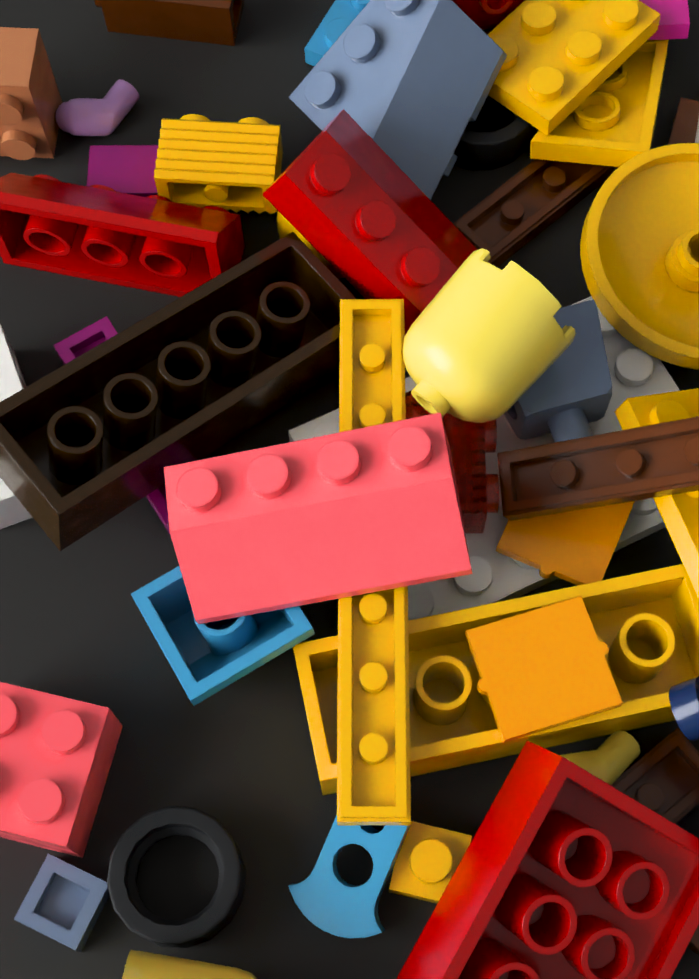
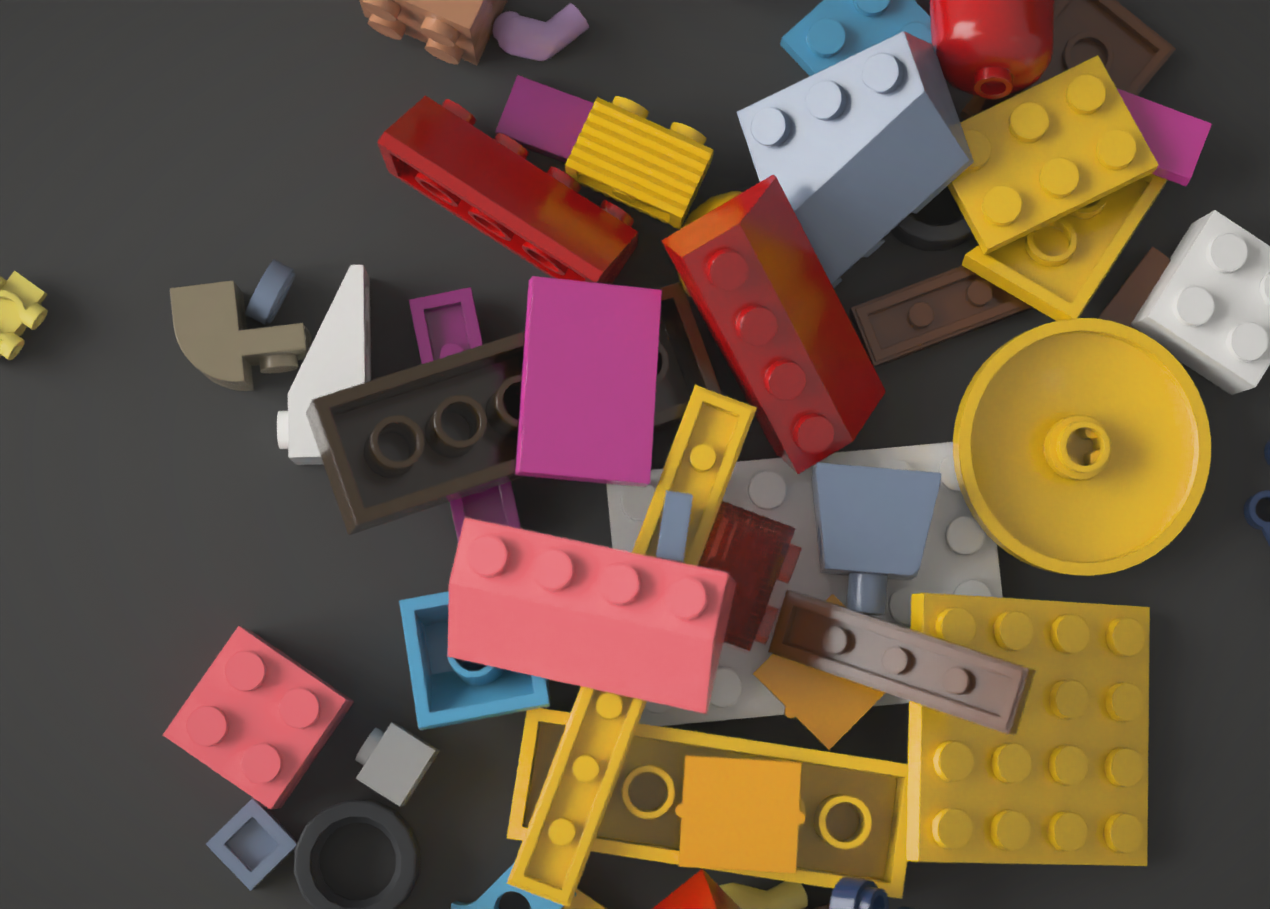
camera: 15 degrees right, 15 degrees up
(182, 761) = (394, 762): none -> light grey plate
(241, 328) = (588, 382): none -> dark pink tile
(368, 398) = (674, 526): none -> sand blue tile
(483, 340) = (800, 501): light yellow cylinder -> none

